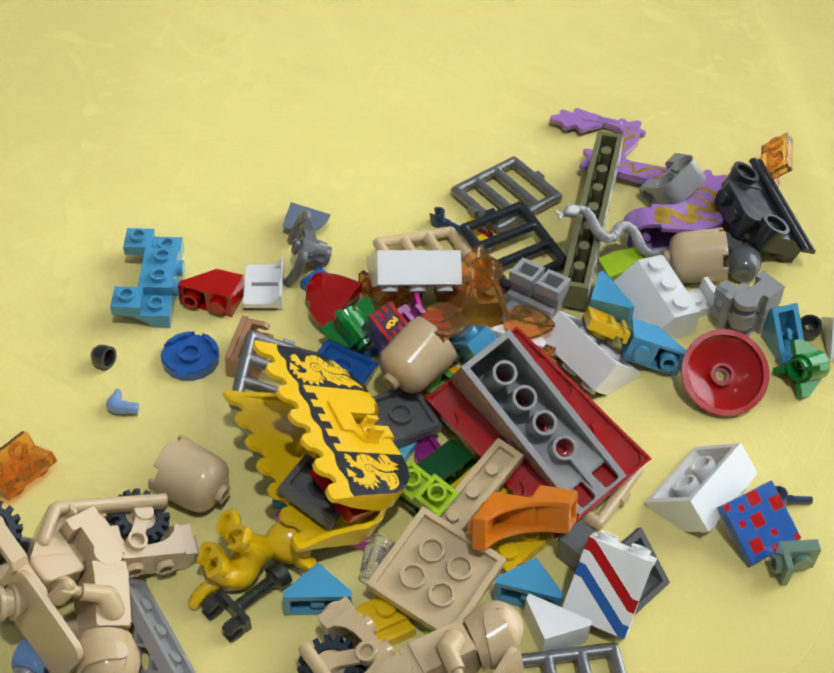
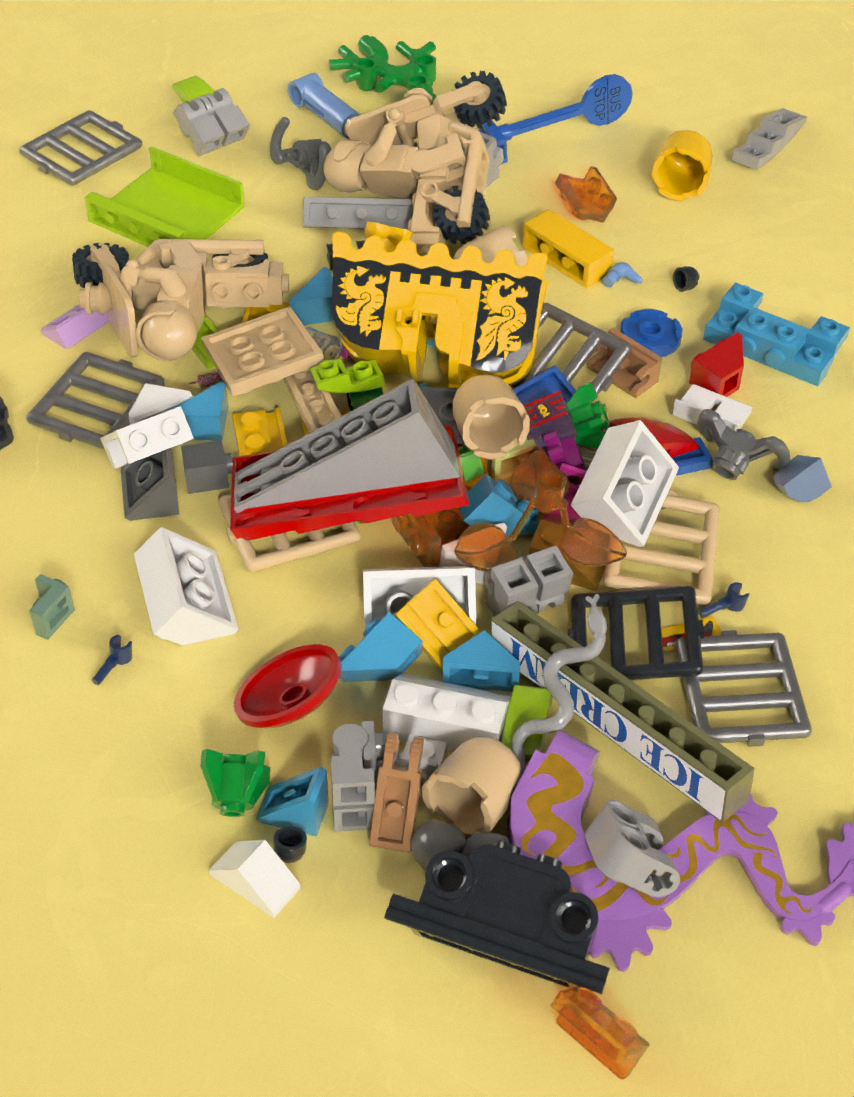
camera: 125 degrees right, 0 degrees up
(112, 447) = (568, 248): none -> yellow brick
(508, 515) = (269, 396): orange arch -> none
(735, 271) = (397, 797): none -> medium nougat hinge
(758, 522) = (105, 600): blue tile -> none

